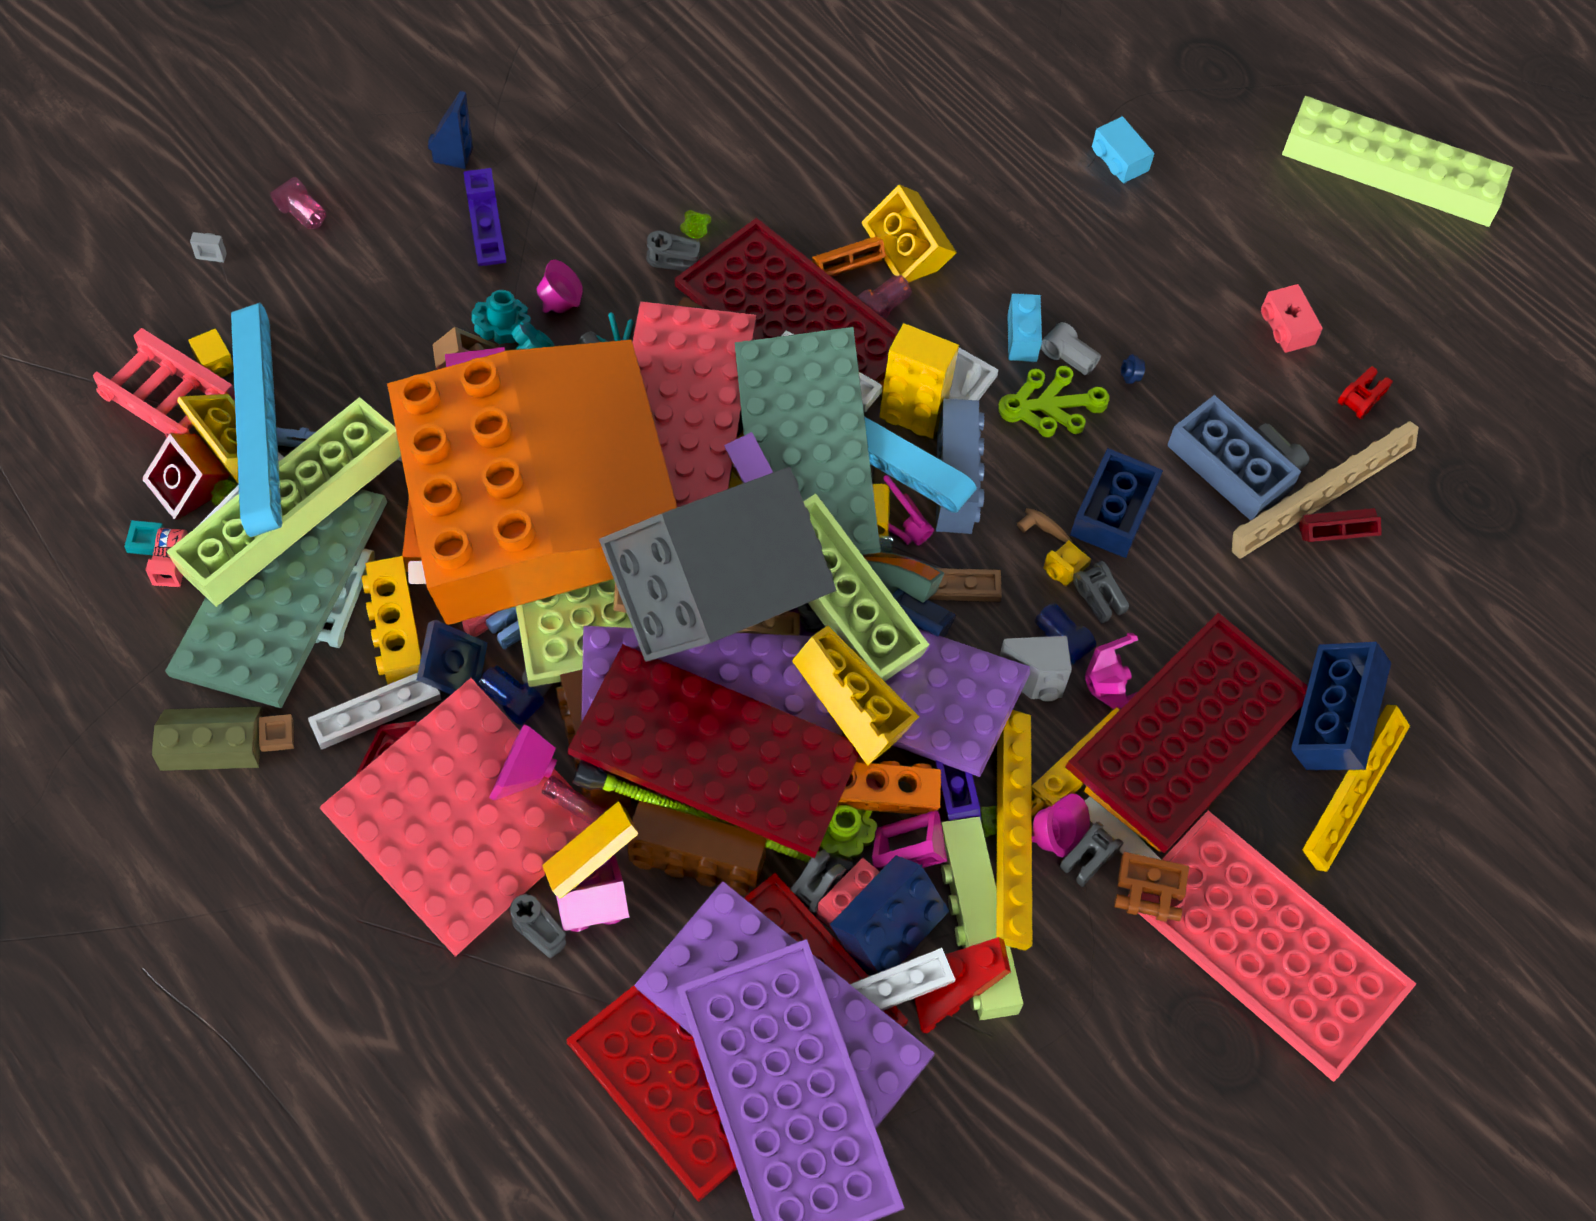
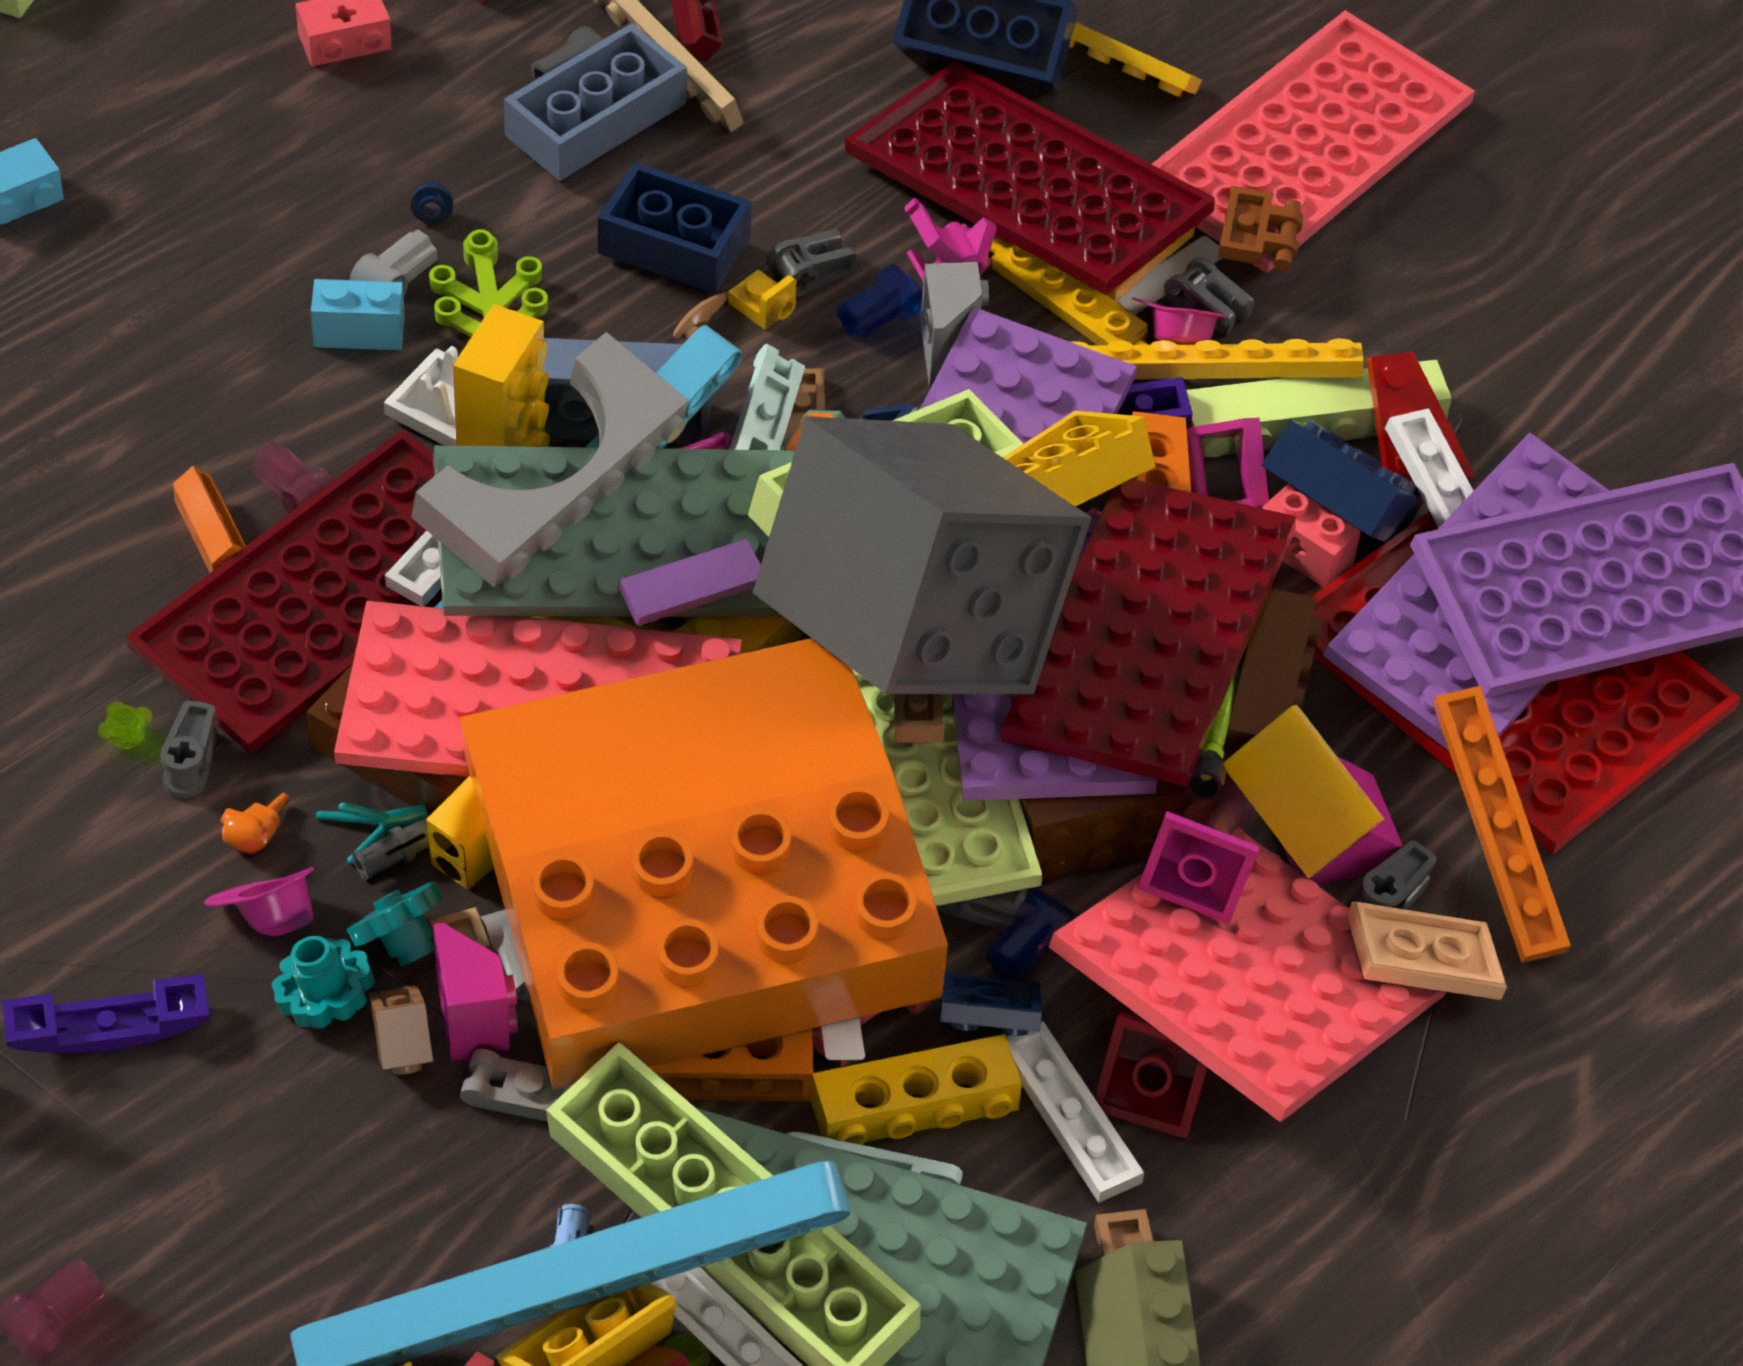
camera: 90 degrees left, 10 degrees down
(474, 935) = (1426, 950): none -> light nougat tile
(573, 993) = (1501, 824): none -> orange plate
(616, 284) = (254, 827): none -> orange piece
(811, 886) = (1304, 565): dark grey piece -> none
(874, 429) = (502, 528): none -> light grey arch
(909, 234) = (159, 443): yellow slope -> none
(944, 549) = (768, 402): none -> light aqua plate

